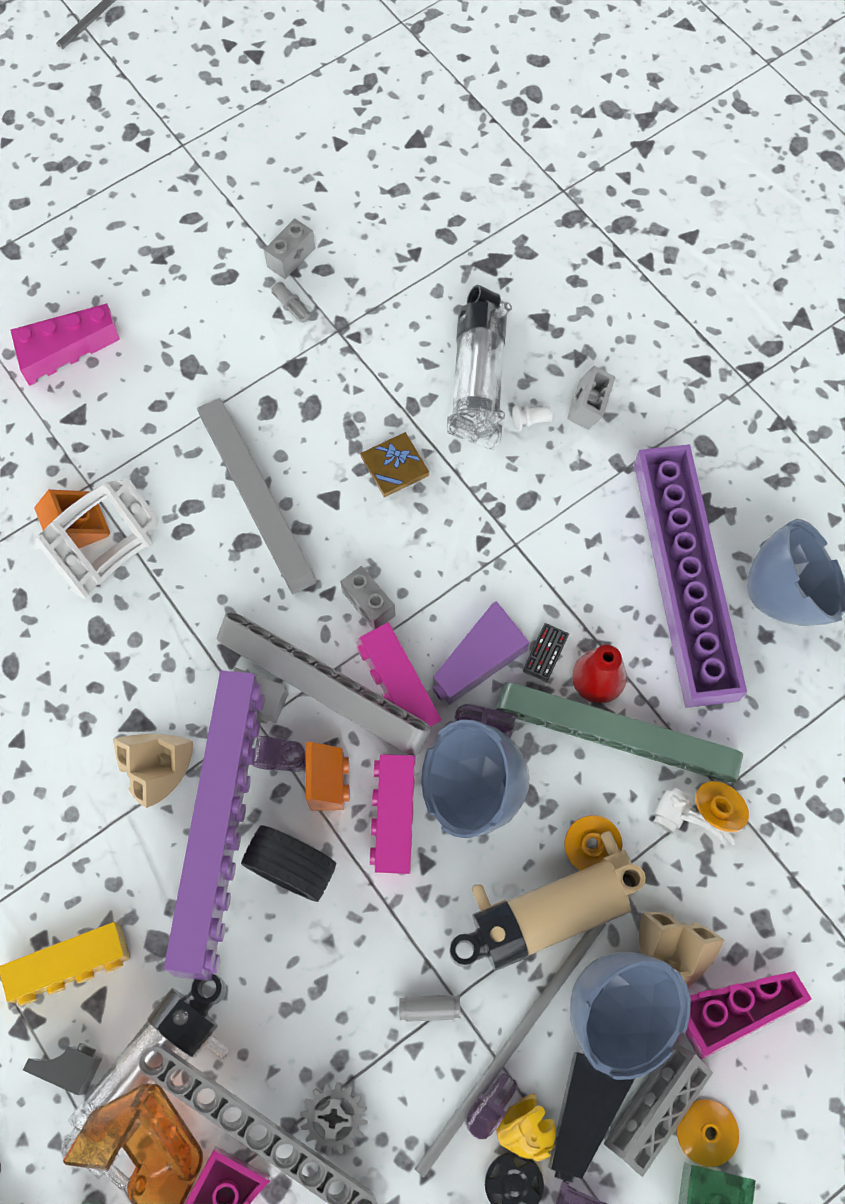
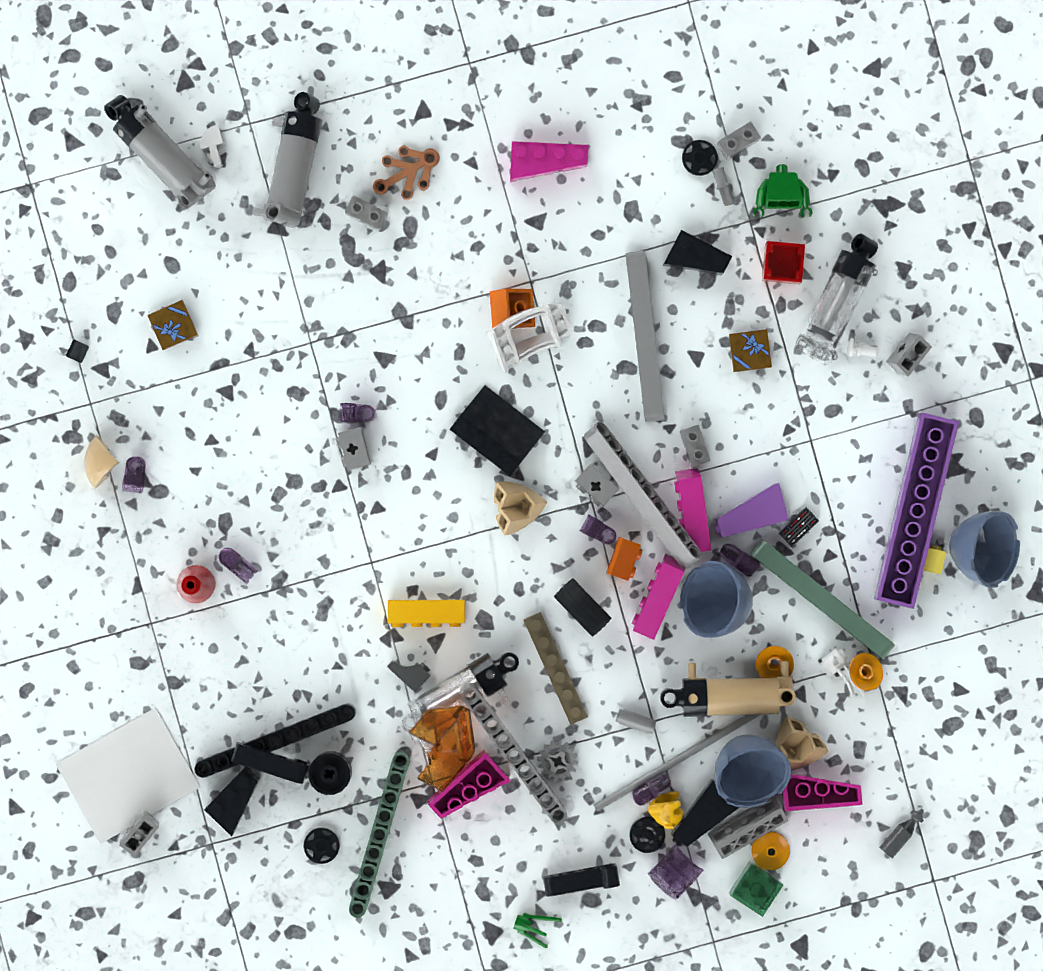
camera: 20 degrees right, 20 degrees up
(95, 677) = (497, 430): none -> black slope
(214, 828) = (548, 567): medium lavender brick -> none
(251, 284) = (699, 158): none -> black wheel
(286, 380) = (696, 255): none -> black wedge
(287, 977) = (555, 668): none -> dark tan plate
(364, 279) = (783, 191): none -> green torso
(395, 354) = (783, 262): none -> red container
(600, 675) = (819, 554): red cone -> none
(743, 626) = (935, 559): none -> light yellow brick

